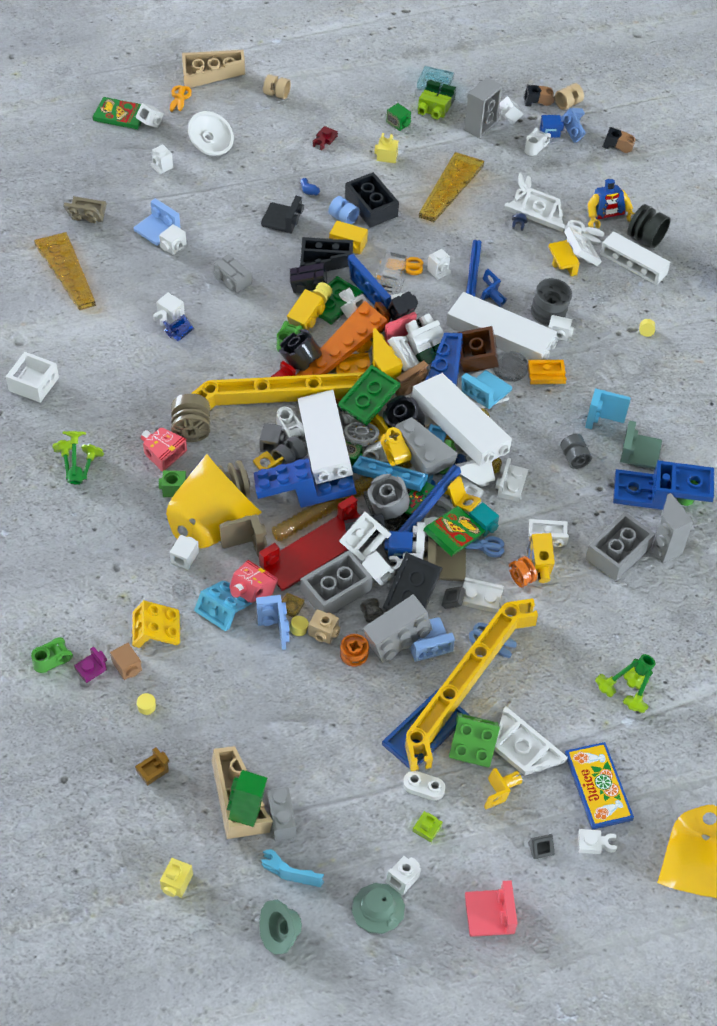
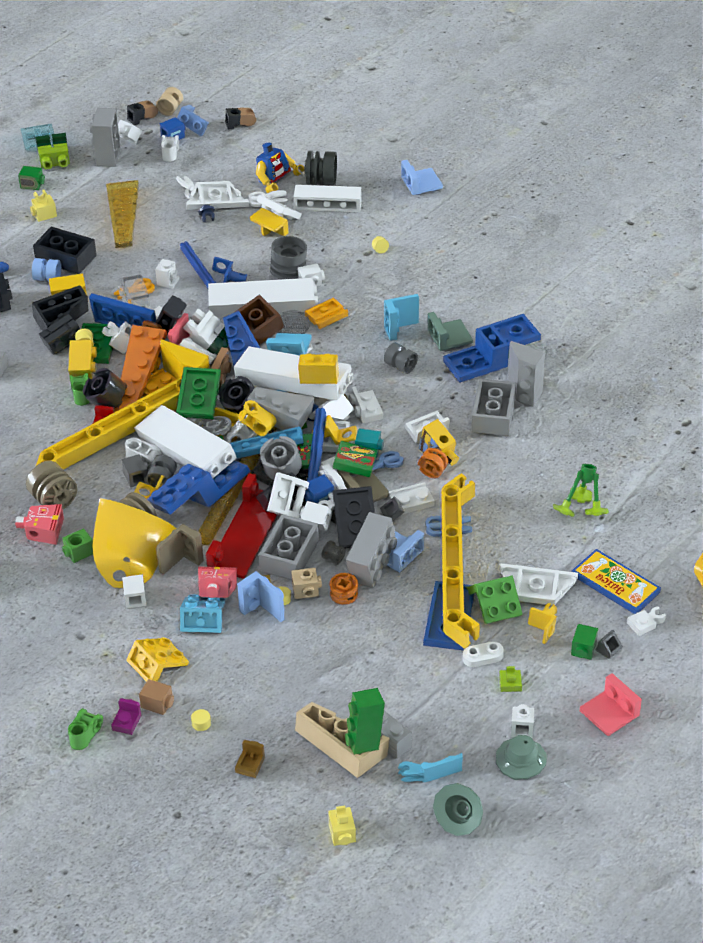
camera: 30 degrees left, 10 degrees down
(475, 429) = (318, 369): none -> yellow brick
(519, 830) = (584, 641): none -> green brick

